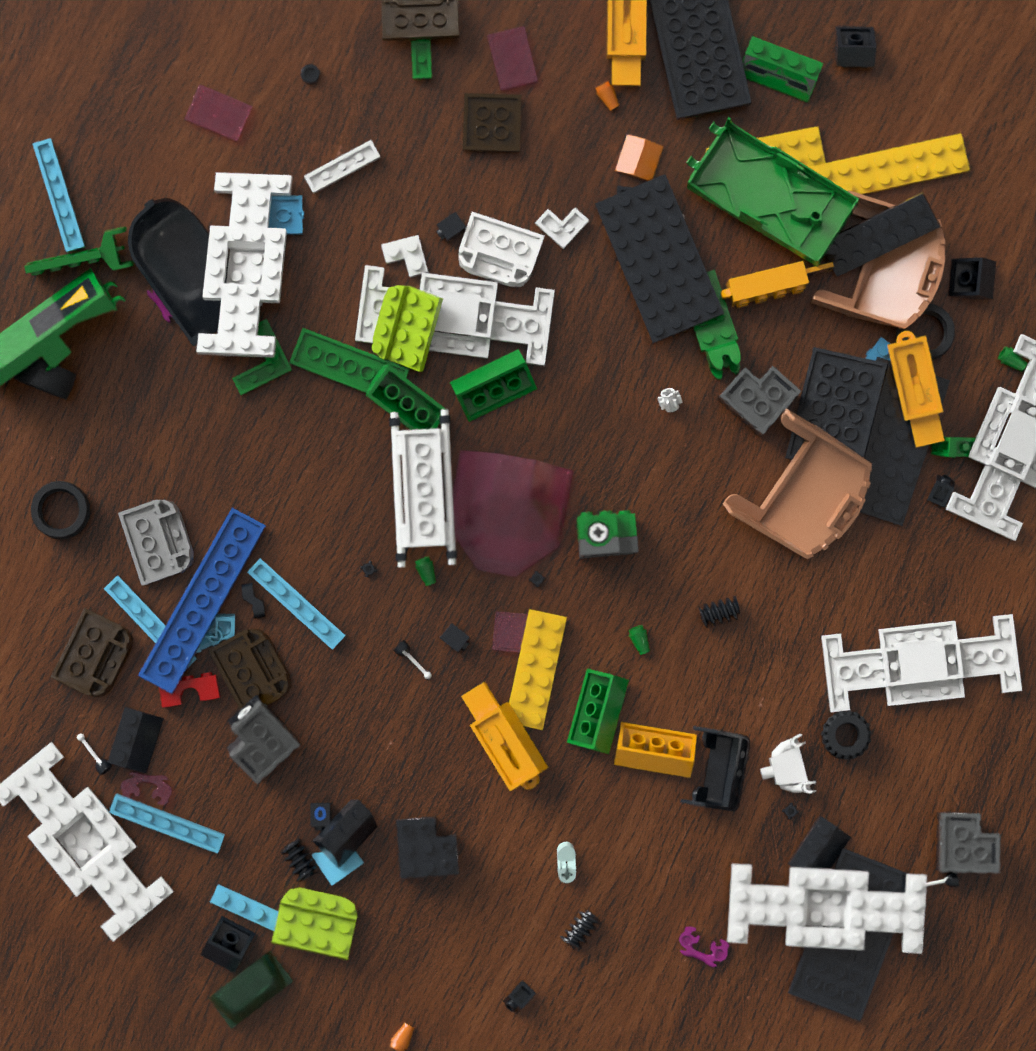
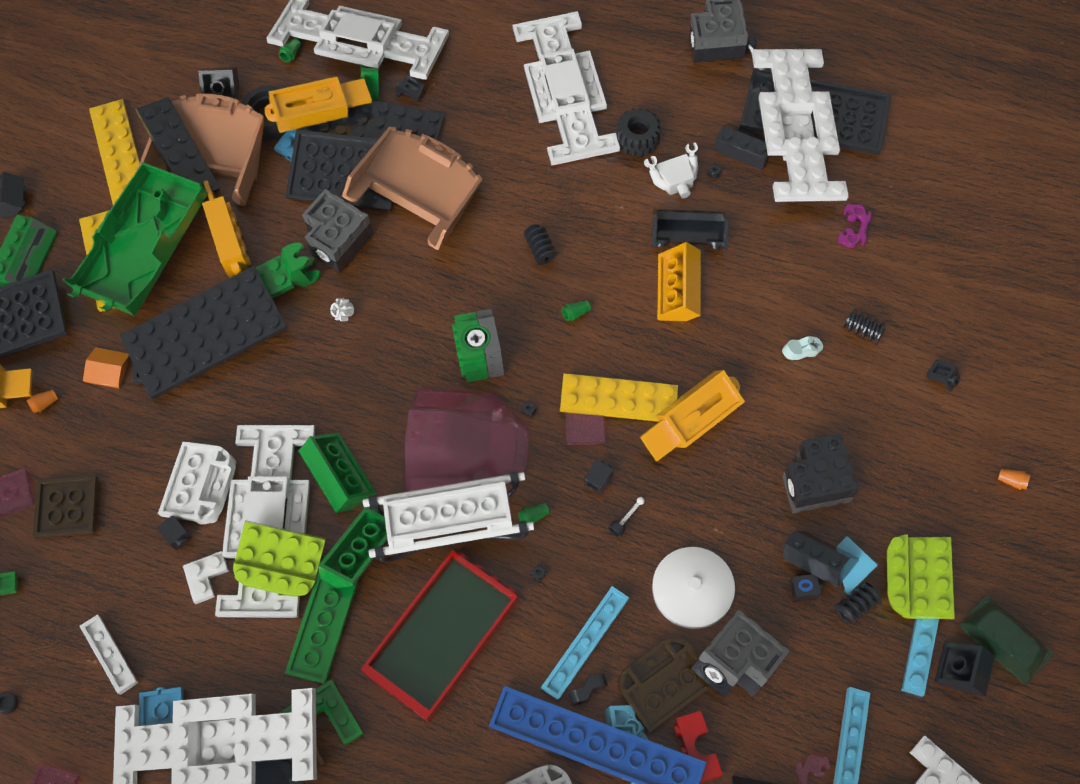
camera: 90 degrees left, 20 degrees down
(321, 472) = (440, 635): none -> clear green window
(336, 711) = (693, 587): none -> white dish
(562, 231) = (177, 429): white plate -> none
(597, 711) = (651, 338): green slope -> none

